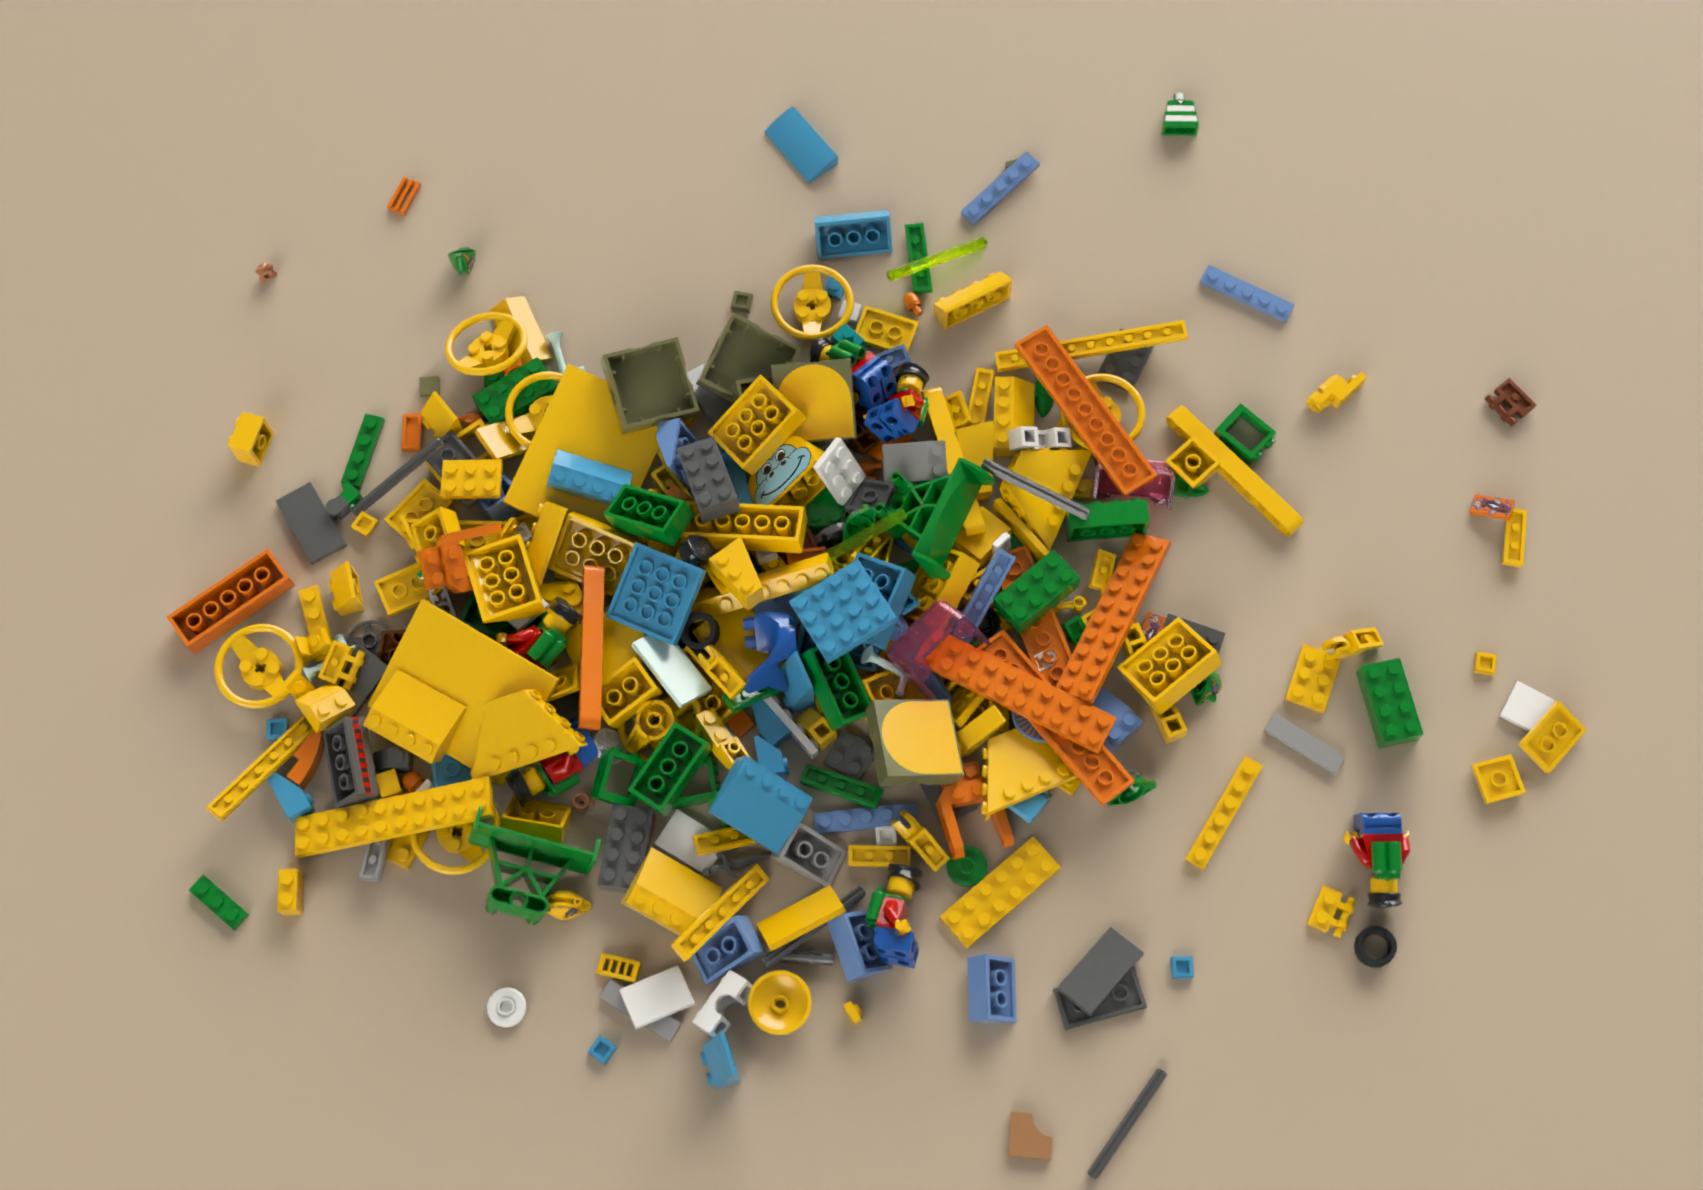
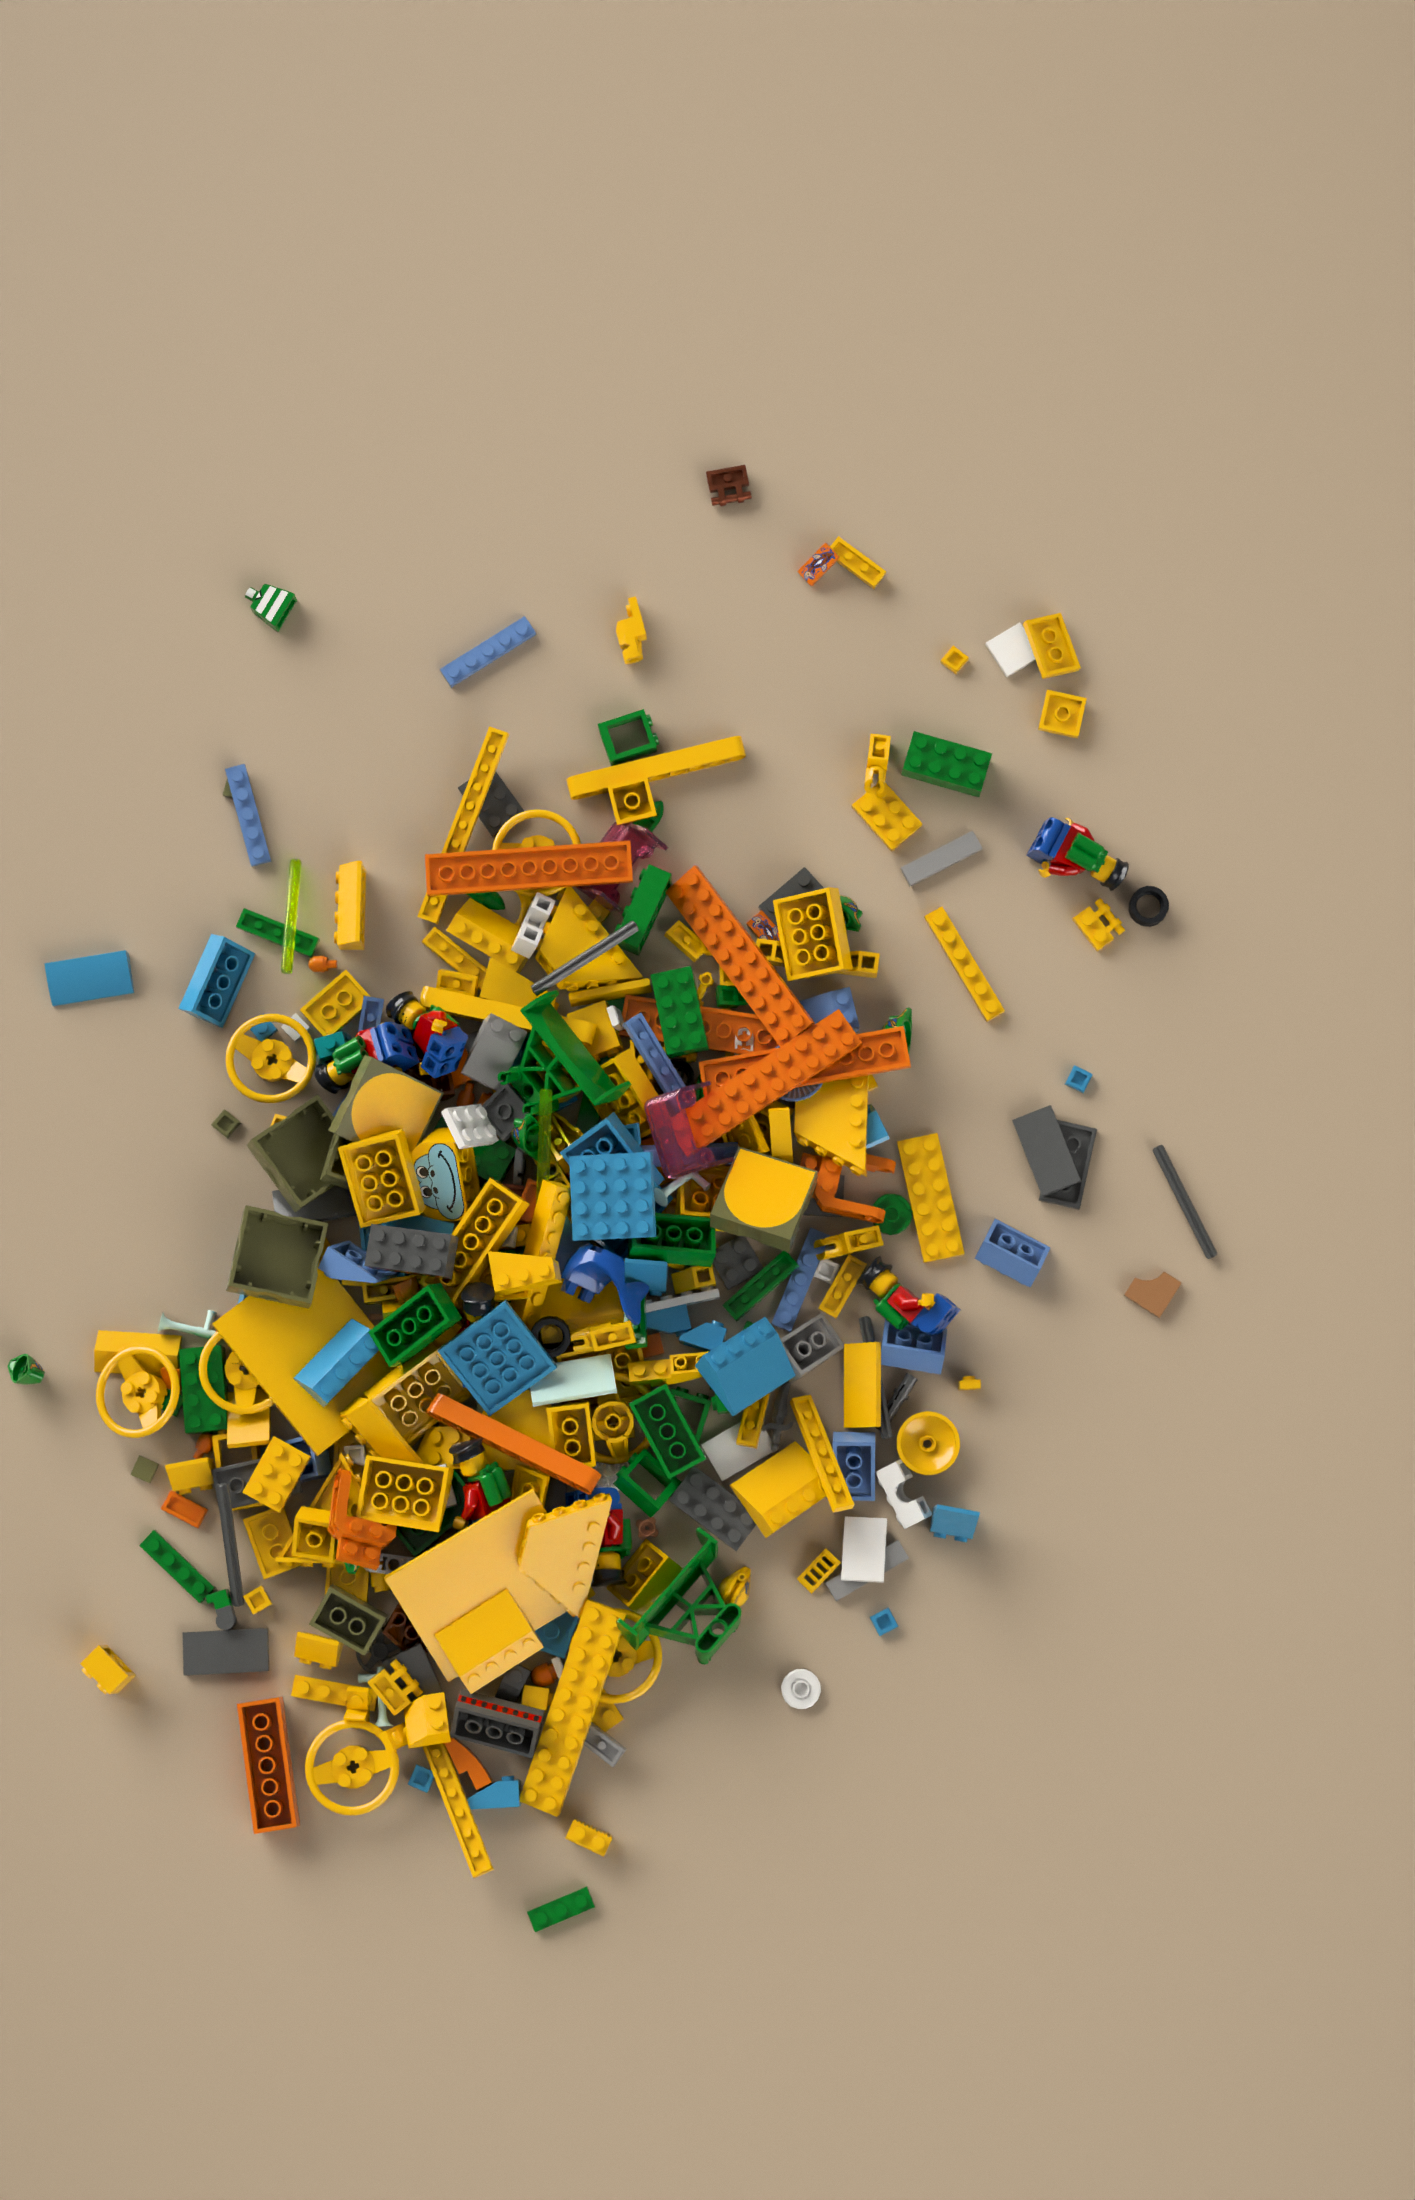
camera: 60 degrees left, 10 degrees up
(379, 598) = (348, 1619): none -> olive brick

